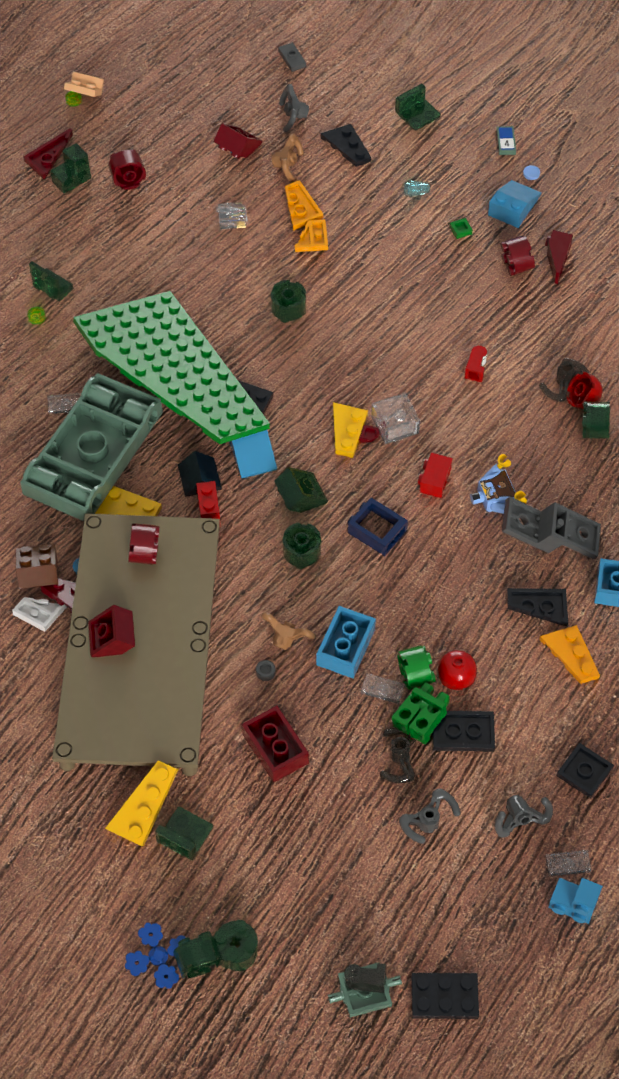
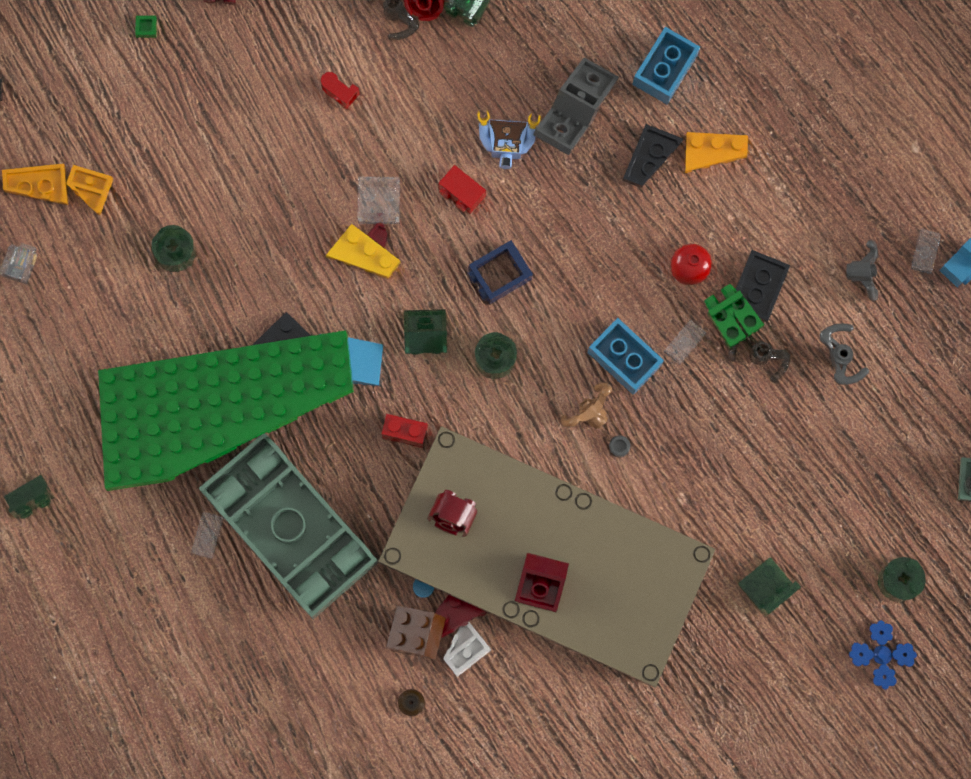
camera: 75 degrees left, 20 degrees up
(36, 315) = (66, 529): clear neon green tile -> none
(127, 503) = (370, 512): yellow wing -> none
(143, 806) = (734, 619): yellow wing -> none
(197, 469) = (360, 428): black slope -> none
(197, 955) = (903, 618): clear green brick -> none
(275, 743) = (711, 467): dark red brick -> none
(415, 188) = (69, 49): clear light blue cone -> none
(415, 667) = (681, 301): green brick -> none
(585, 770) = (841, 194): black plate -> none

